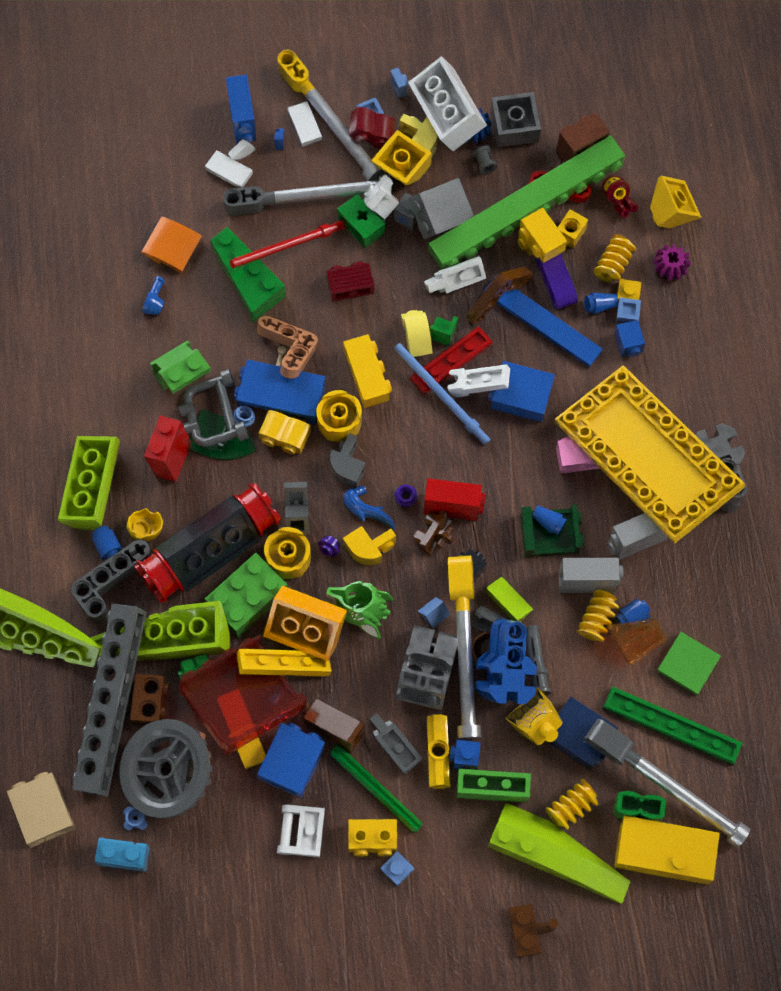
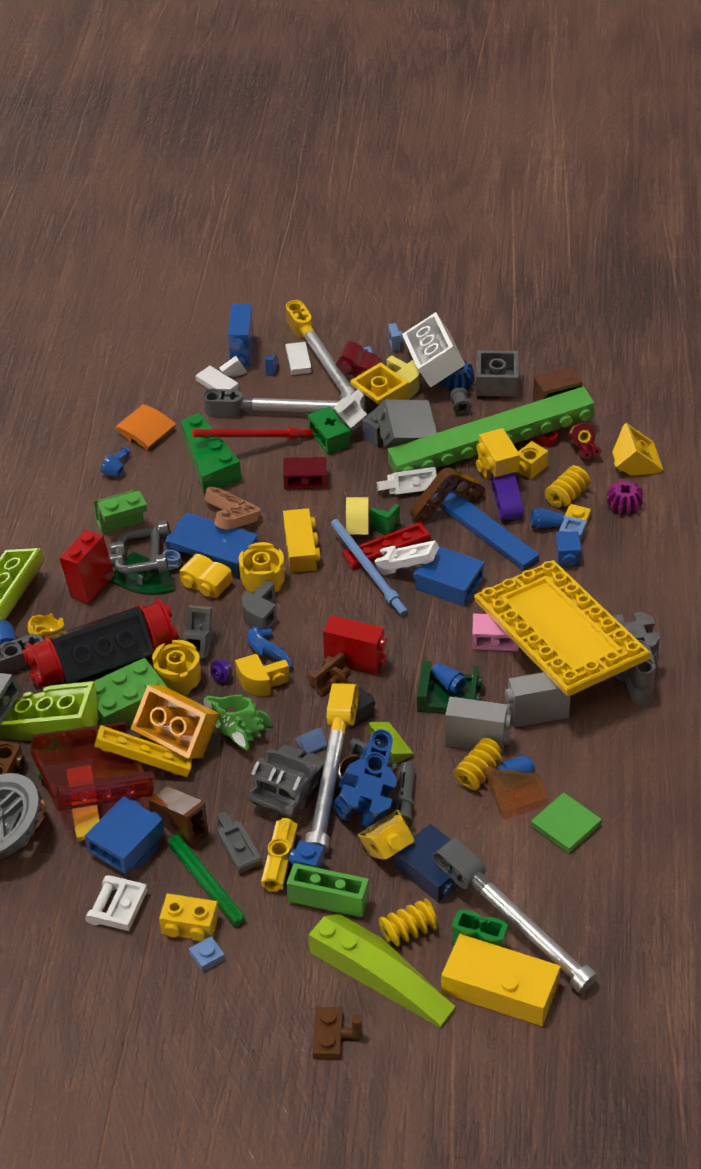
camera: 15 degrees right, 25 degrees down
(405, 489) = (310, 642): dark purple plate -> none
(672, 725) = (537, 875): green tile -> none

